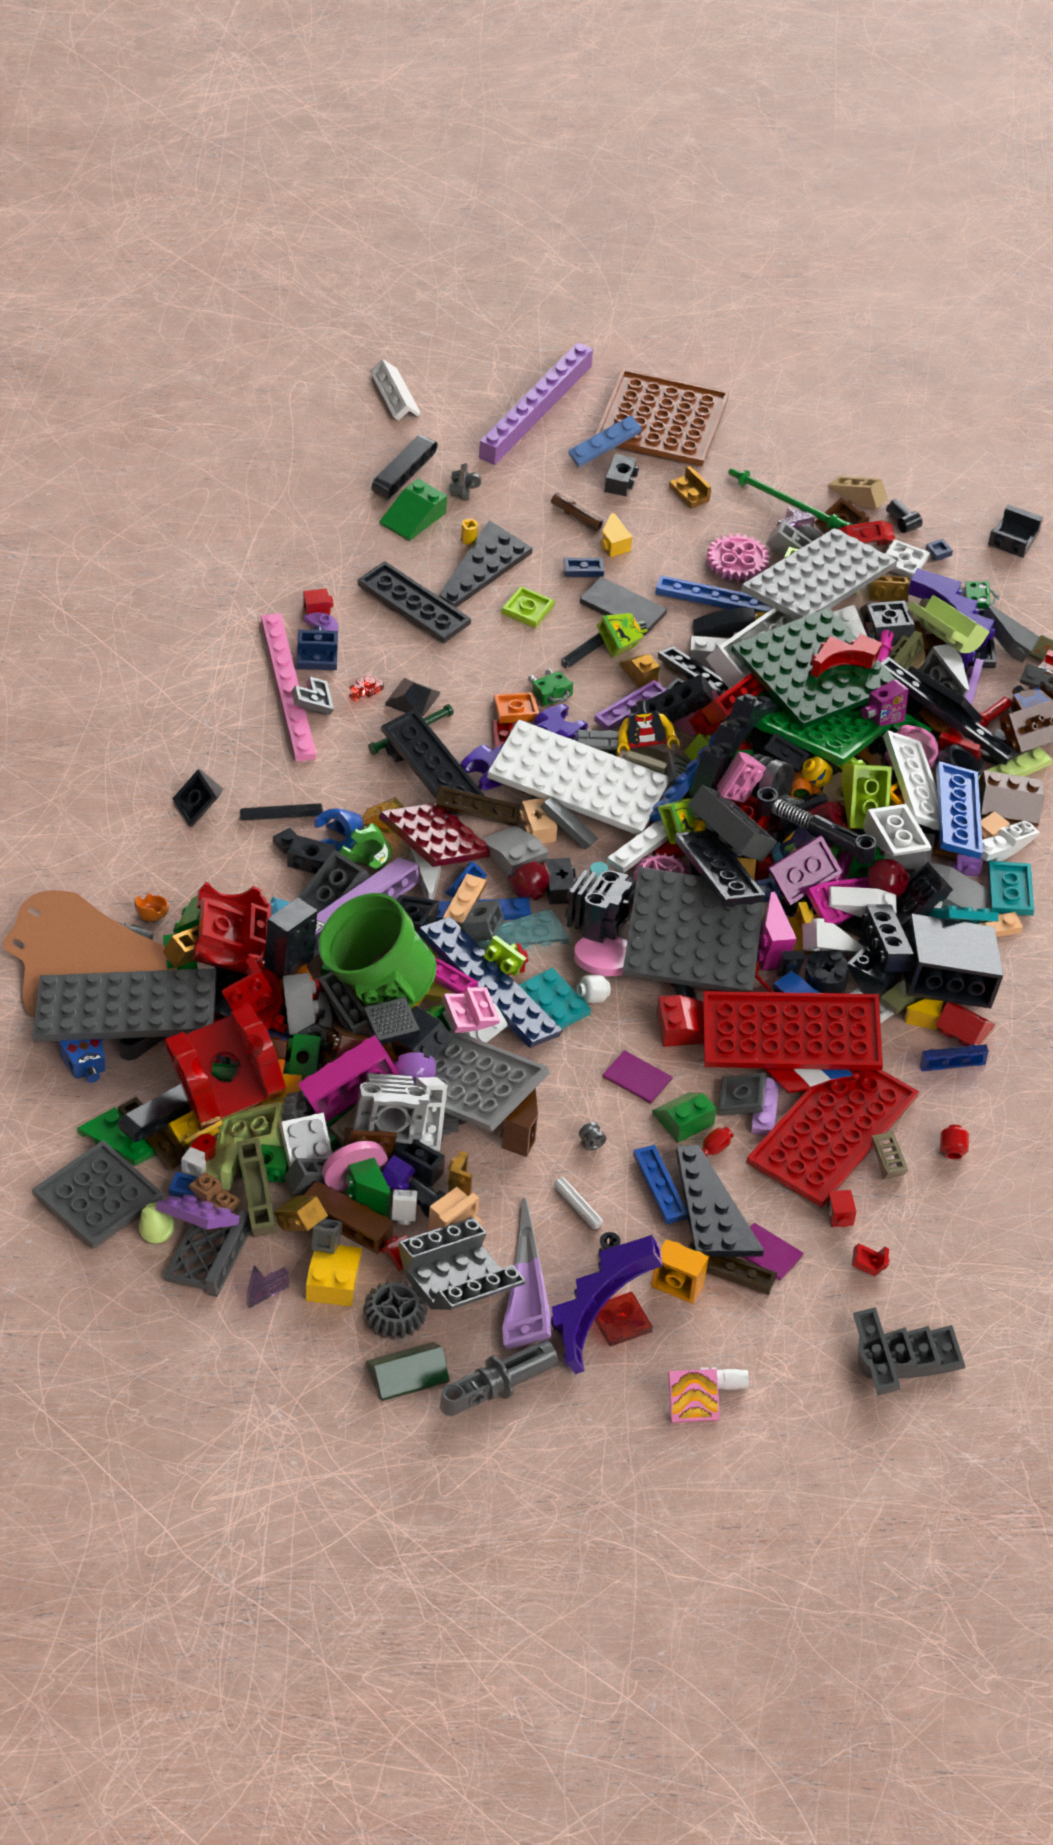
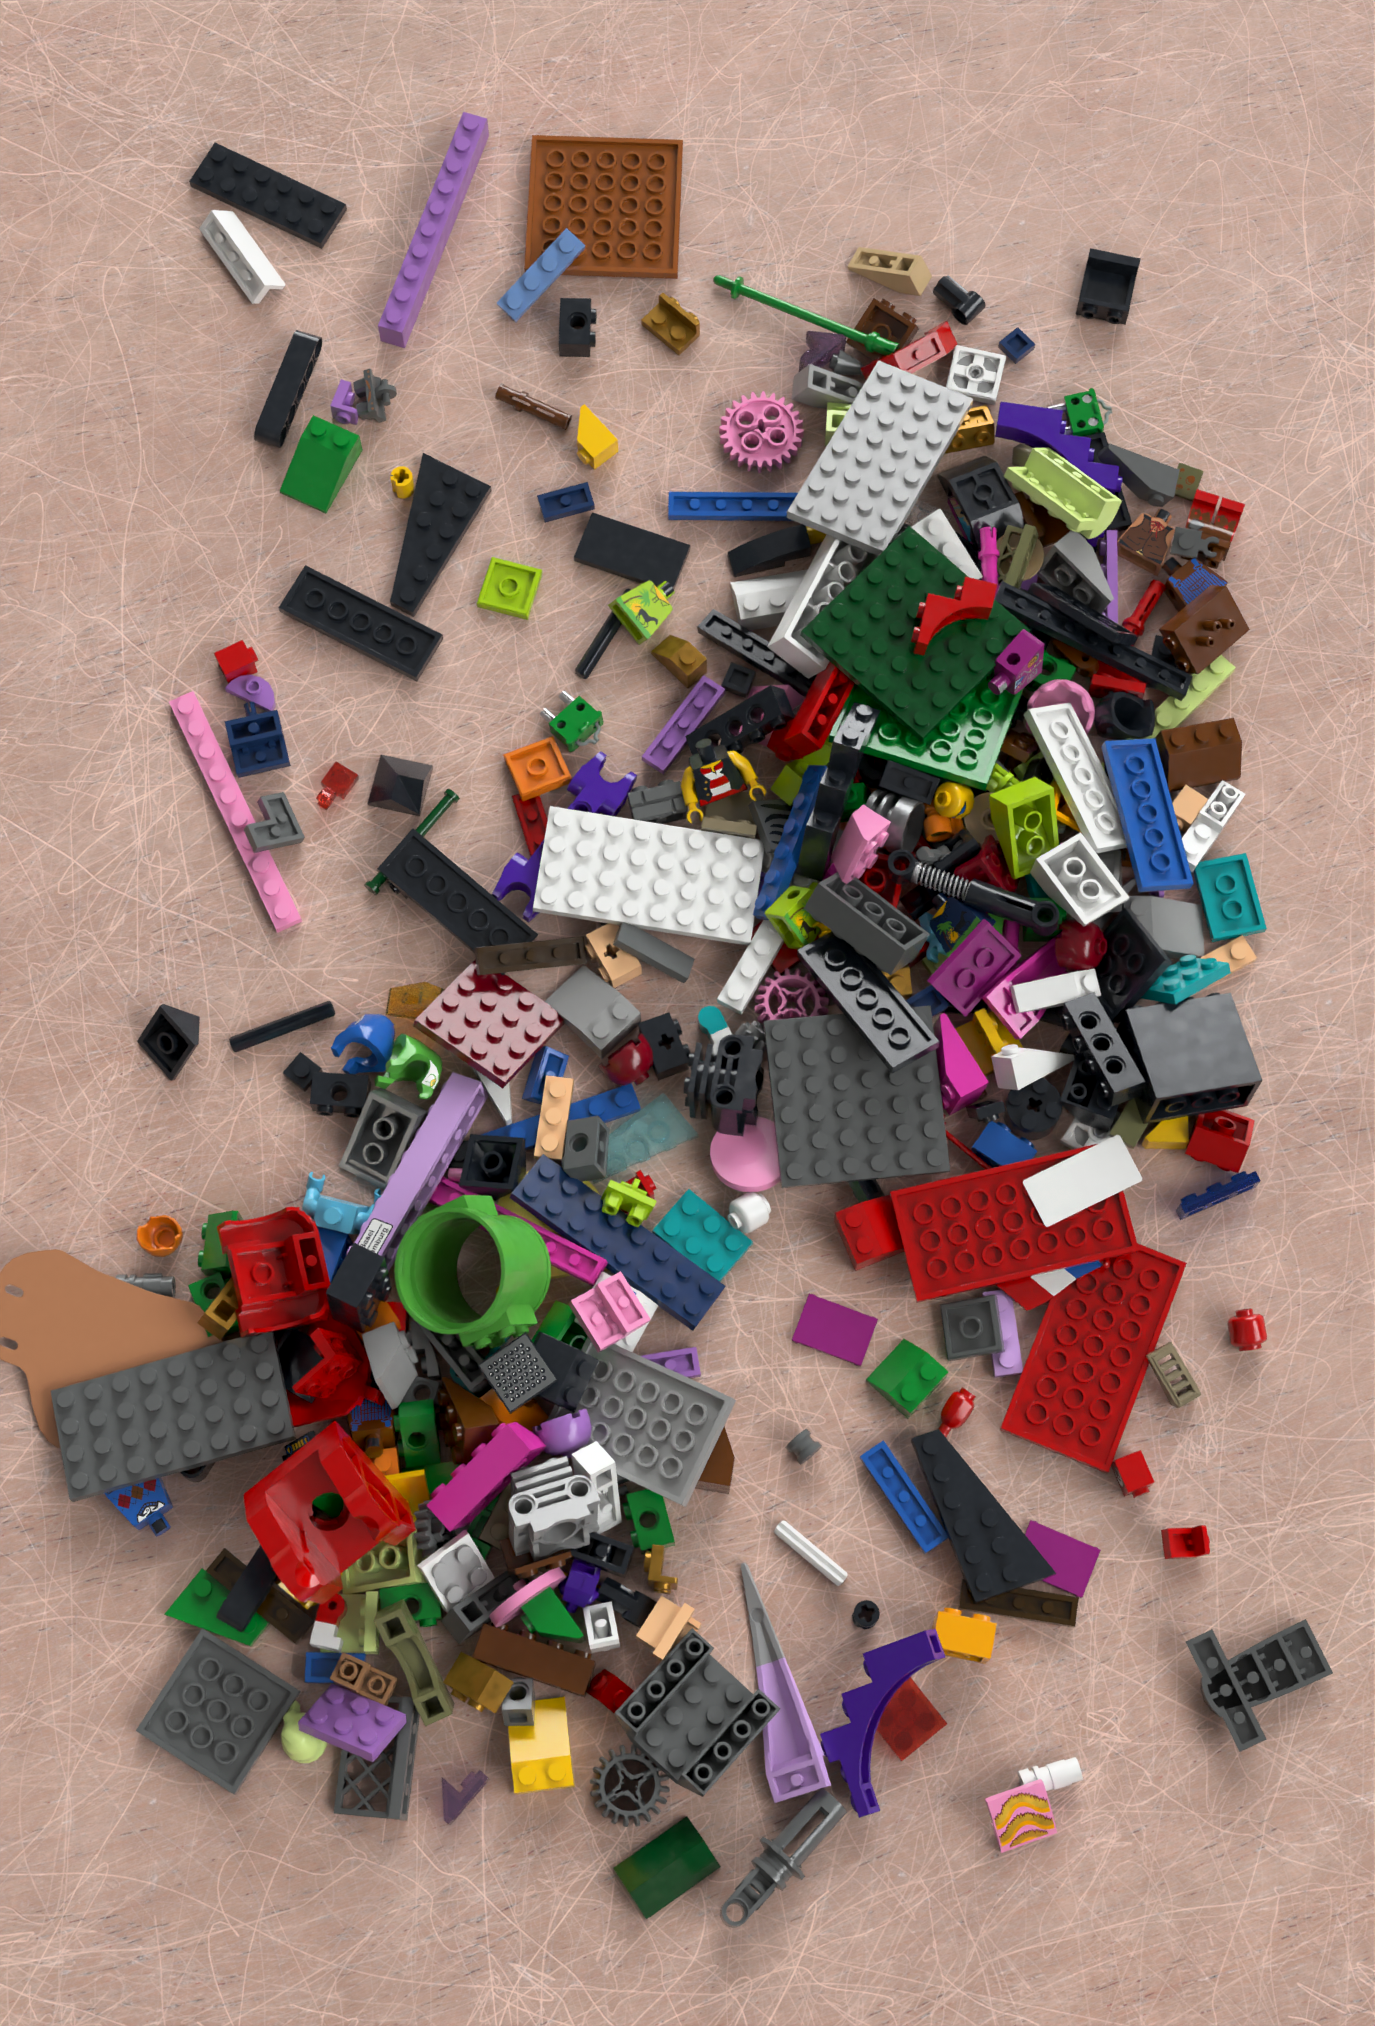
camera: 10 degrees left, 25 degrees up
(424, 365) = (268, 195): none -> black plate
(442, 479) = (342, 404): none -> medium lavender bracket
(464, 1140) = (643, 1503): none -> green brick
(851, 1013) = (1082, 1180): none -> white sticker
(1003, 674) = (1147, 541): none -> torso

